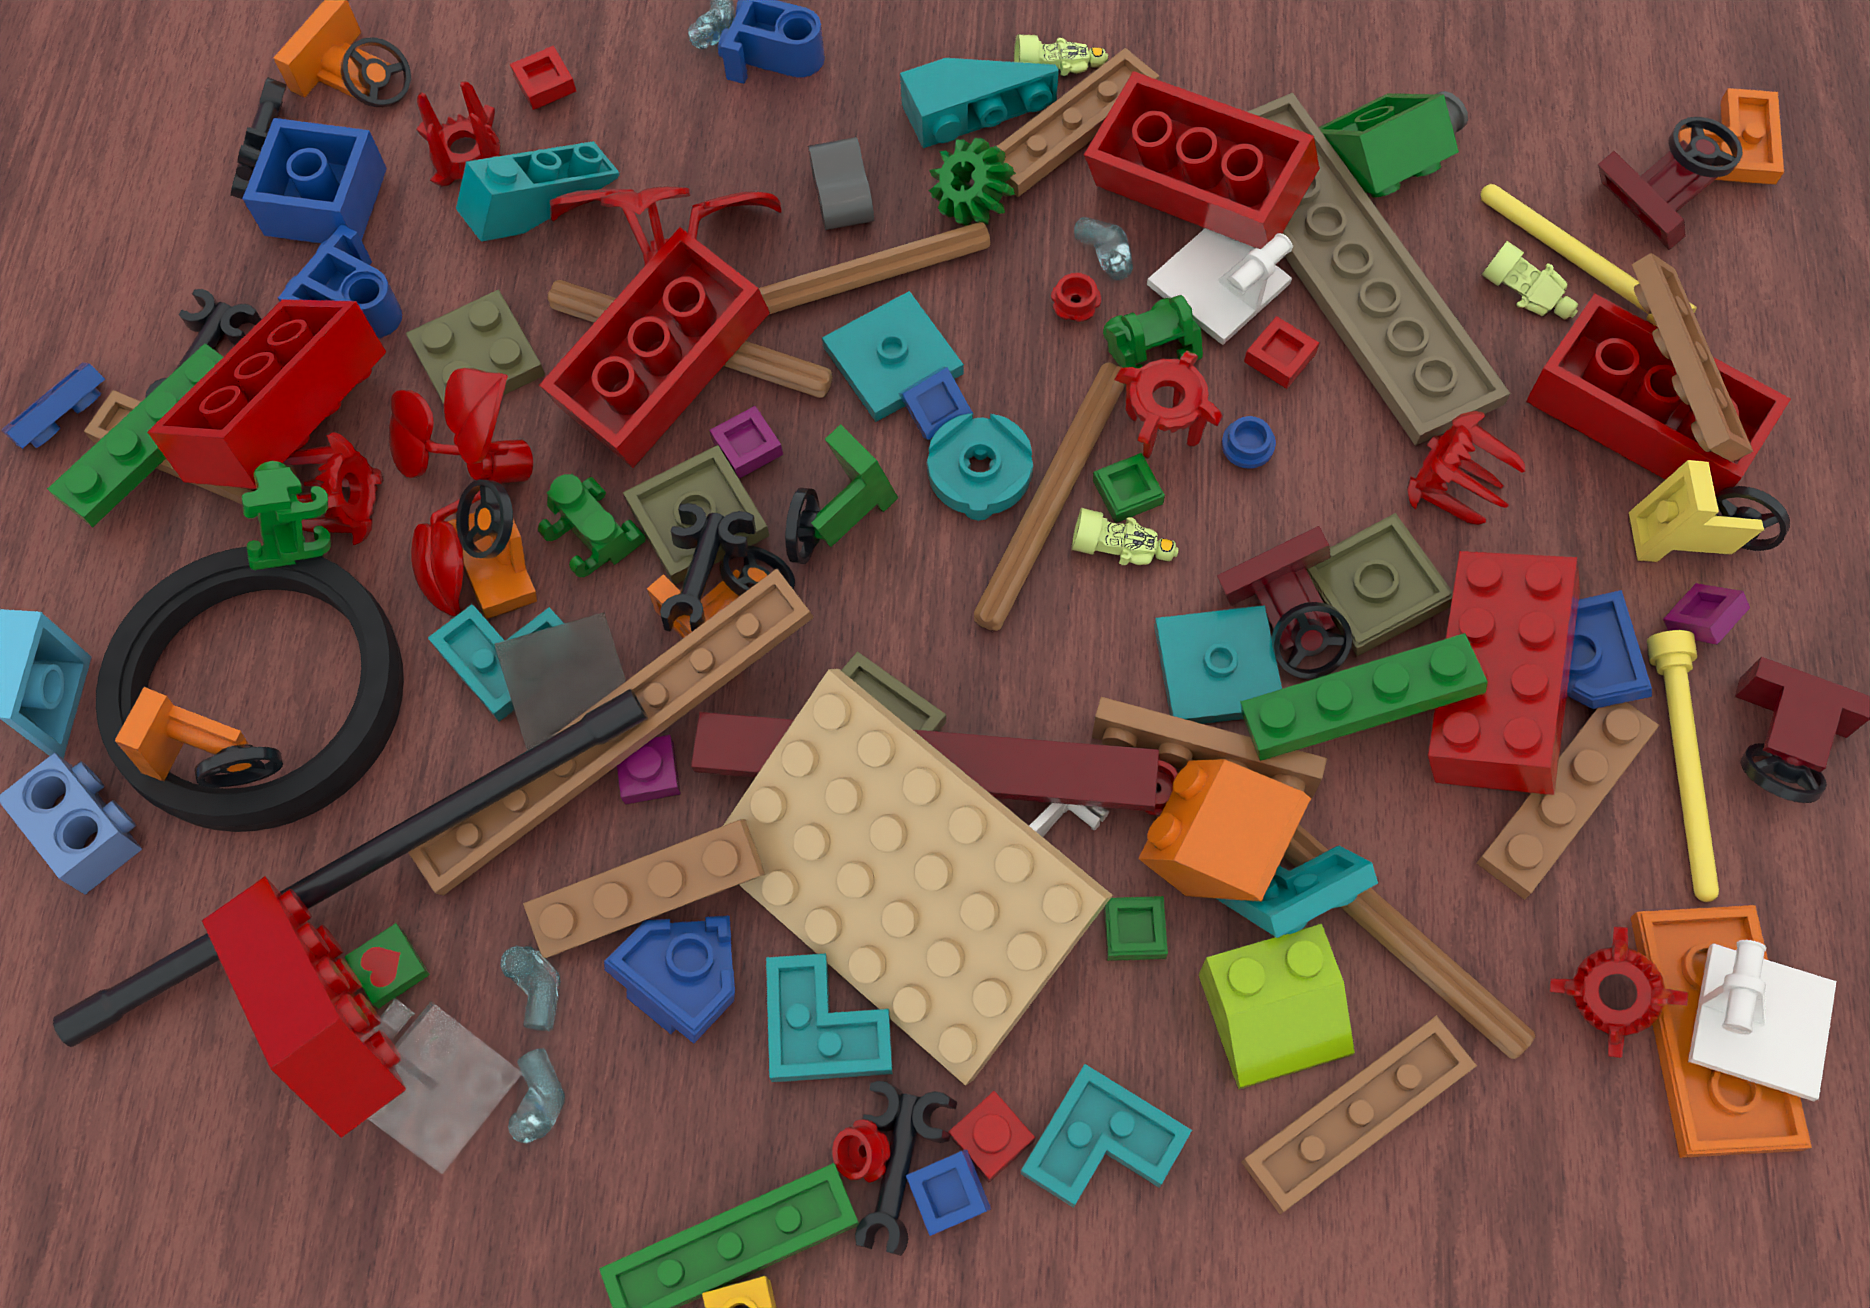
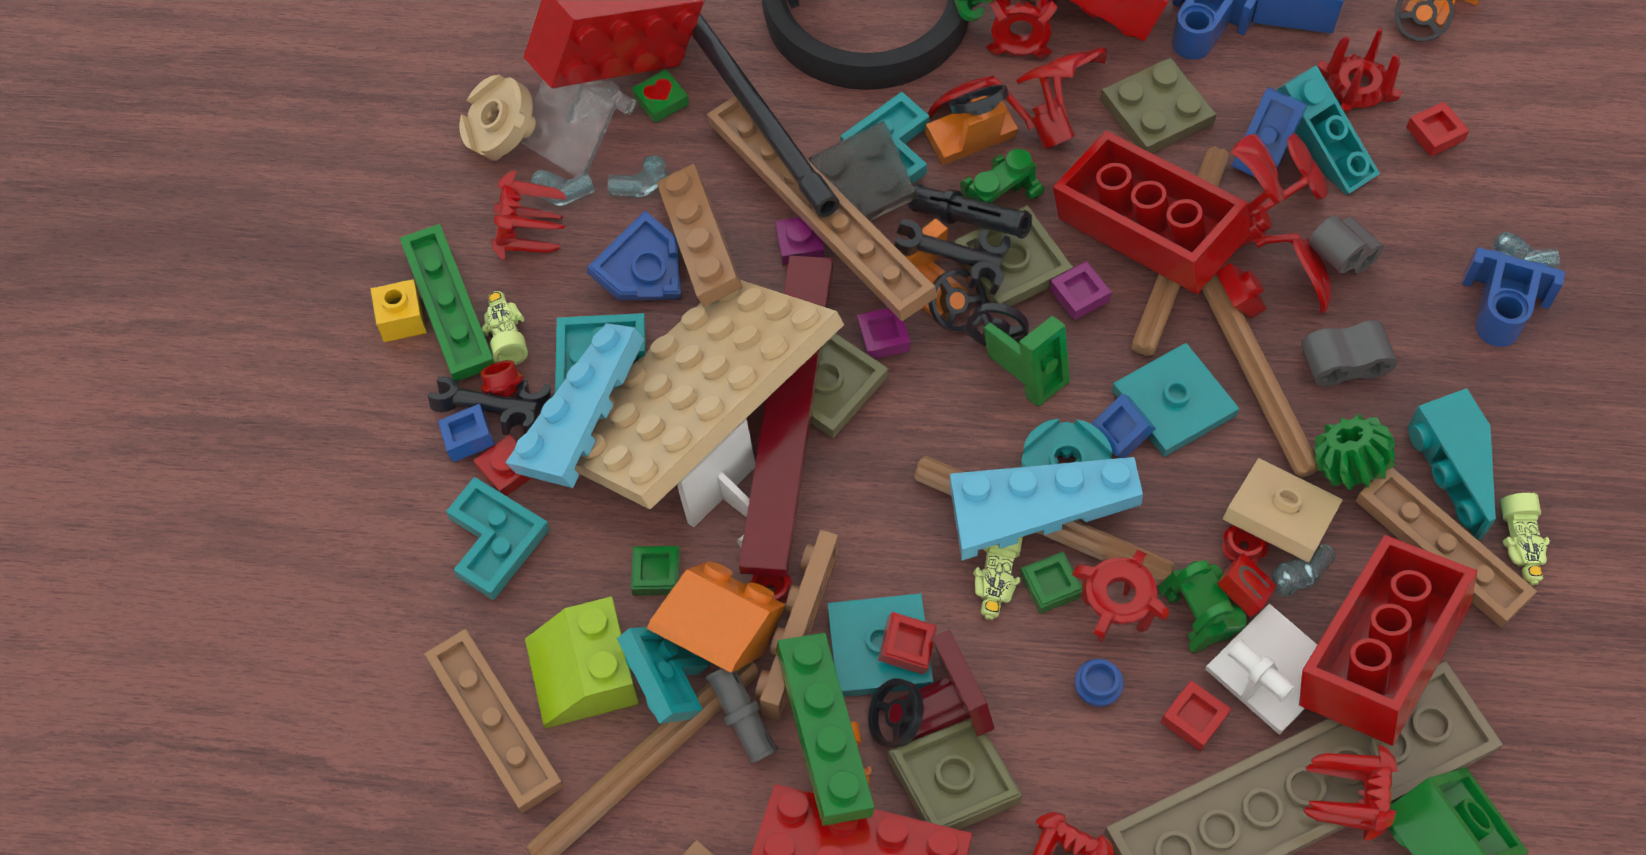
camera: 90 degrees right, 5 degrees down
(395, 1227) = (492, 134): none -> tan plate
(546, 228) = (1273, 122): none -> blue plate
(573, 1148) = (514, 215): none -> red piece
(661, 495) = (954, 207): none -> black pin
(707, 166) = (1345, 244): none -> dark grey axle
(760, 1163) = (501, 322): none -> yellowish green piece
(761, 272) = (1242, 289): none -> red plate
(799, 661) = (883, 333): none -> magenta plate
(949, 1032) = (568, 418): none -> medium azure wing
(1039, 255) = (1283, 510): none -> tan plate
(1048, 495) = (1020, 501): none -> medium azure wing
(1132, 293) = (1246, 585): none -> red tile
(1228, 625) = (907, 643): none -> red tile
(1334, 804) = (742, 714): none -> dark grey pin
(1393, 199) = (1370, 812): none -> red piece

